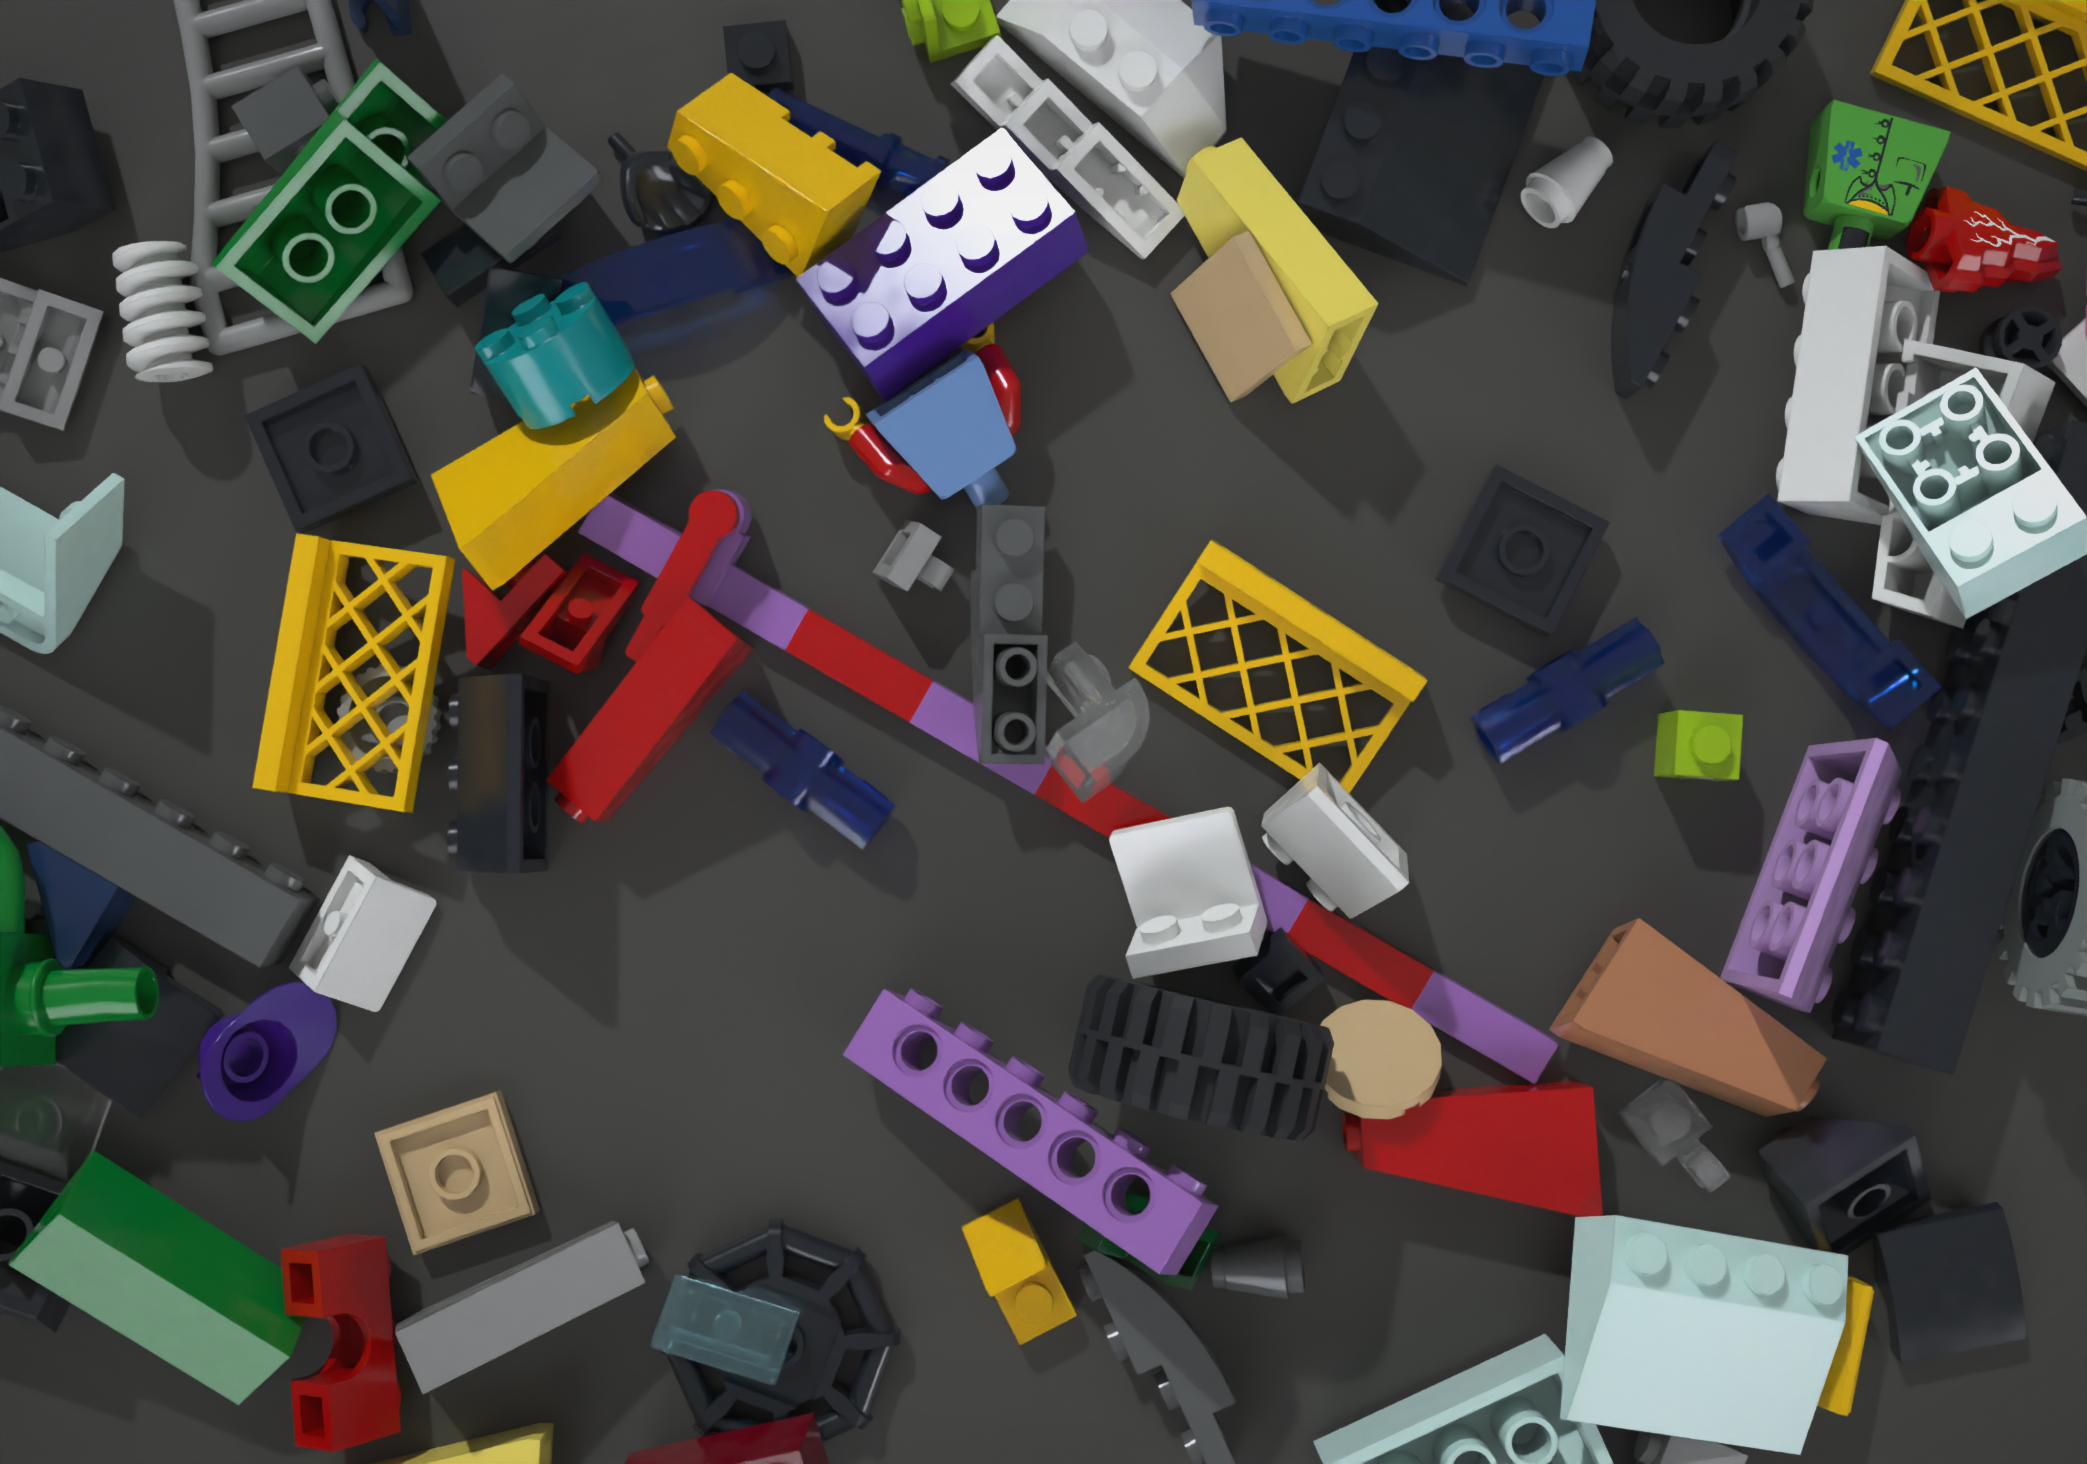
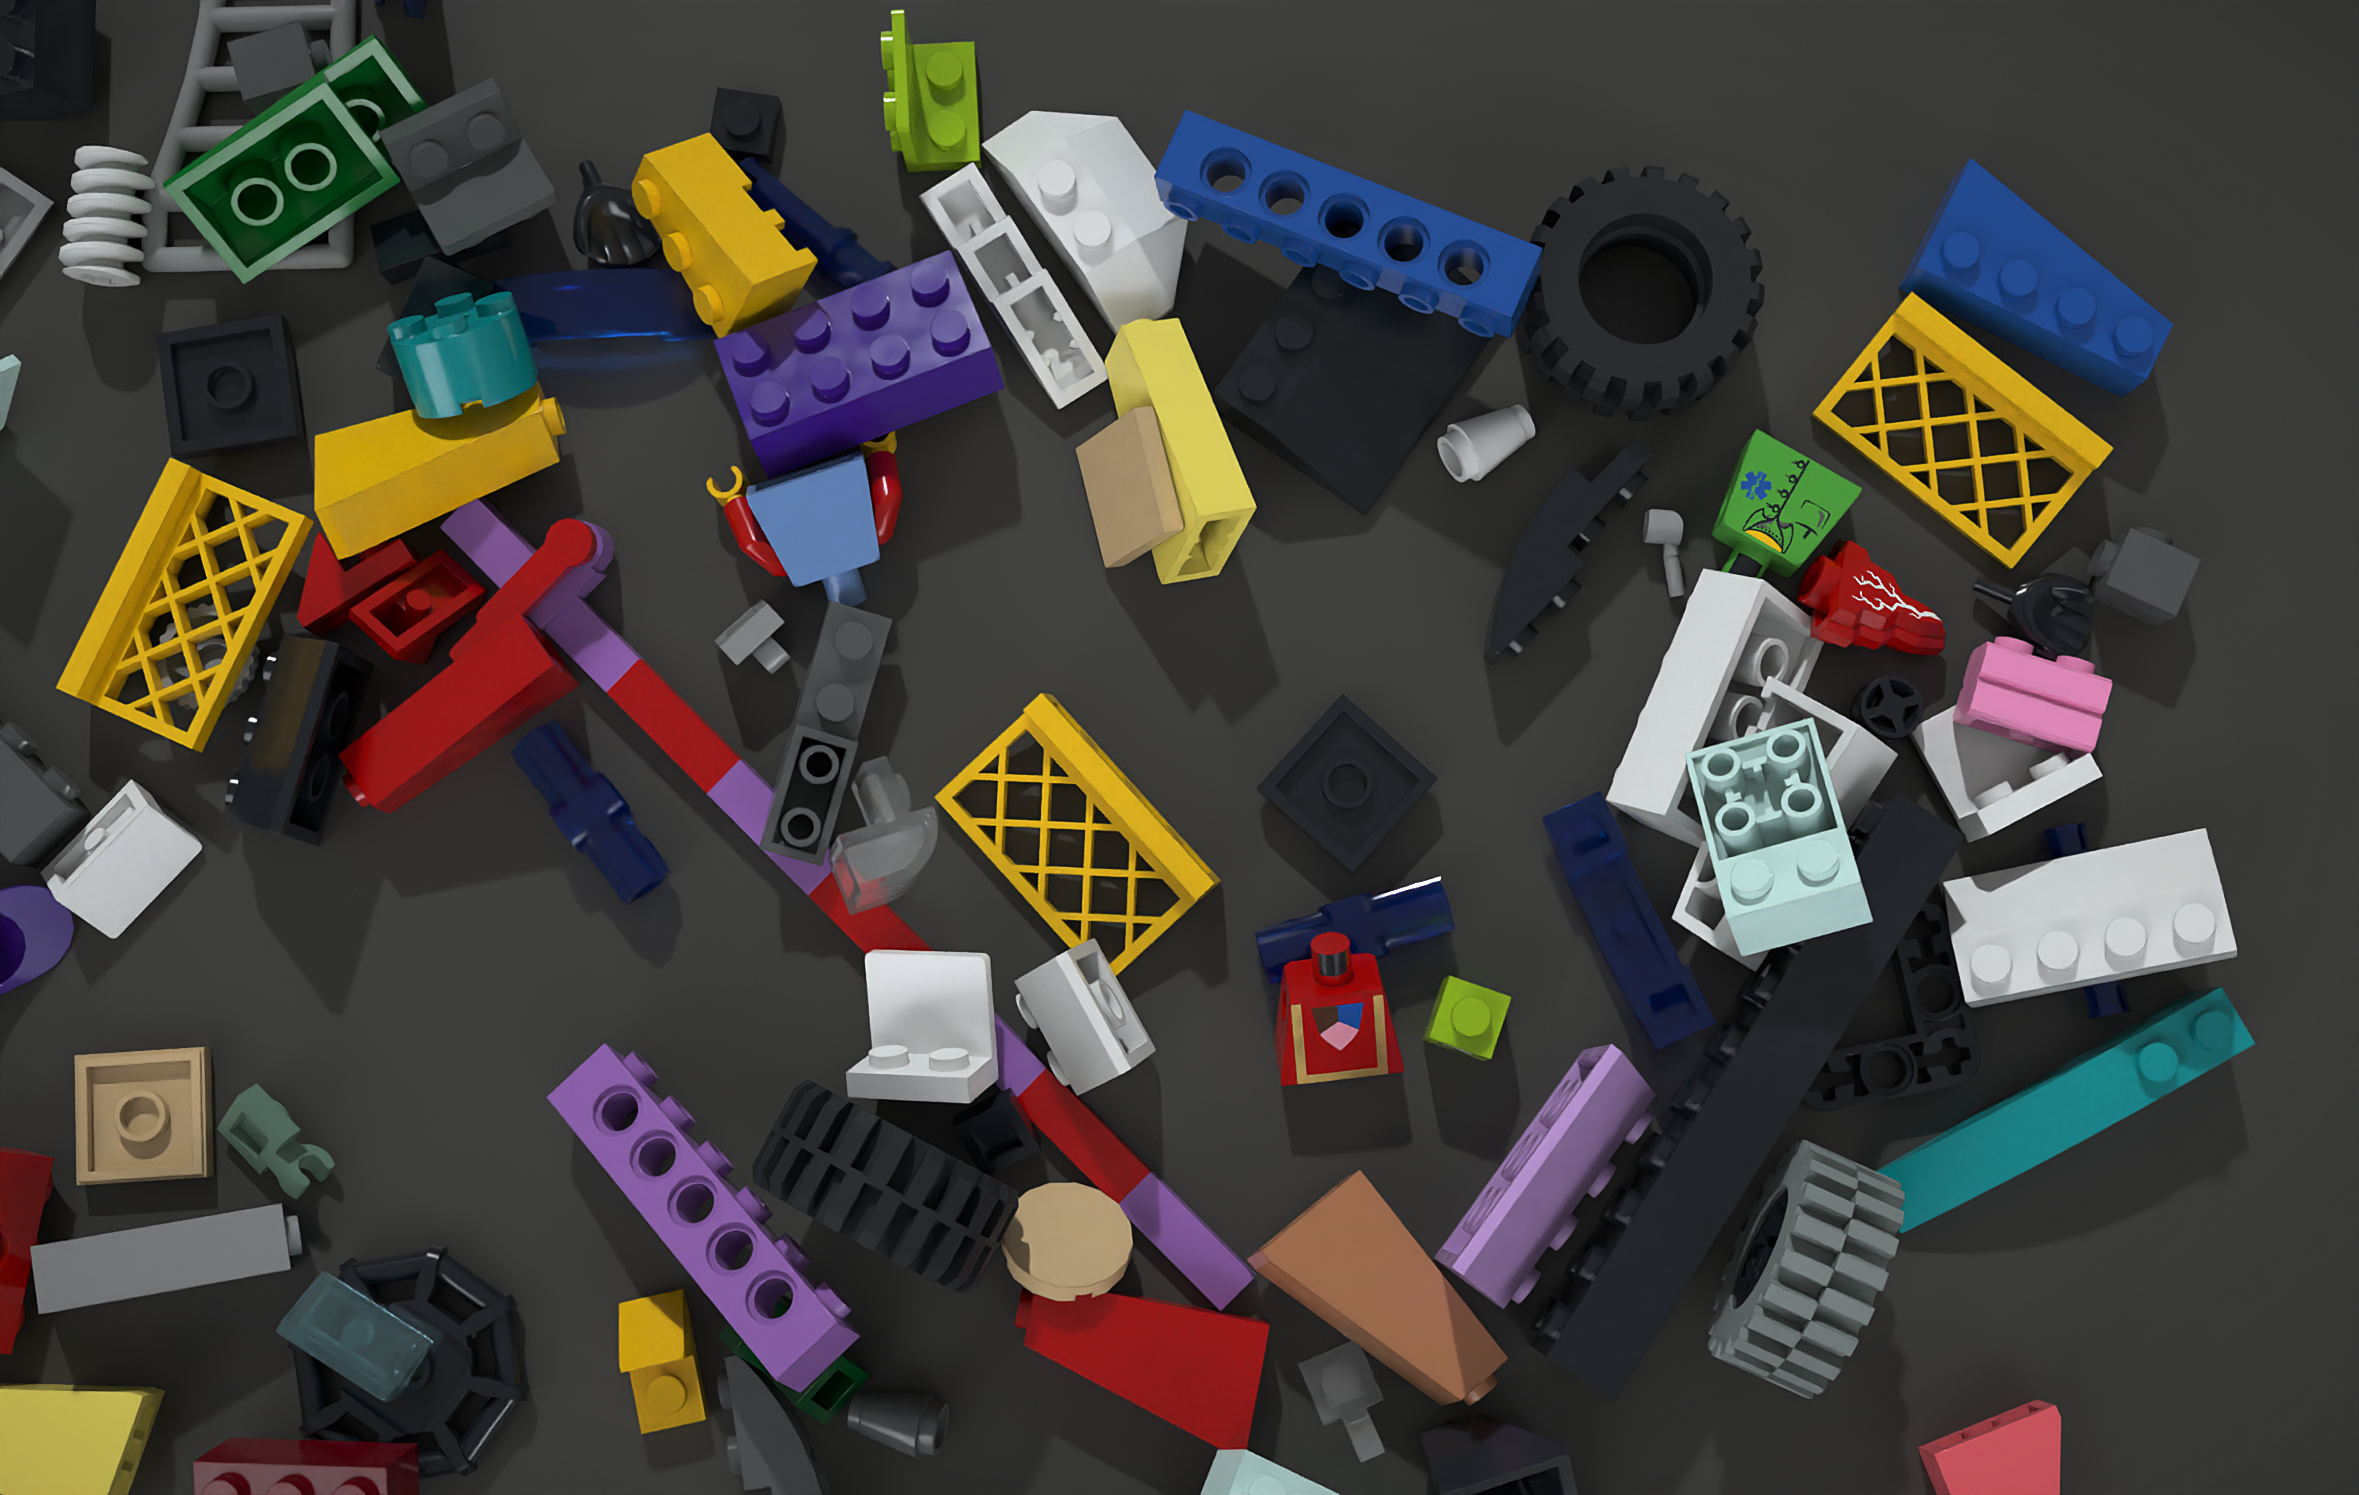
camera: 15 degrees right, 5 degrees down
(583, 1164) = (265, 1139): none -> sand green plate
(1574, 779) = (1334, 1017): none -> red torso

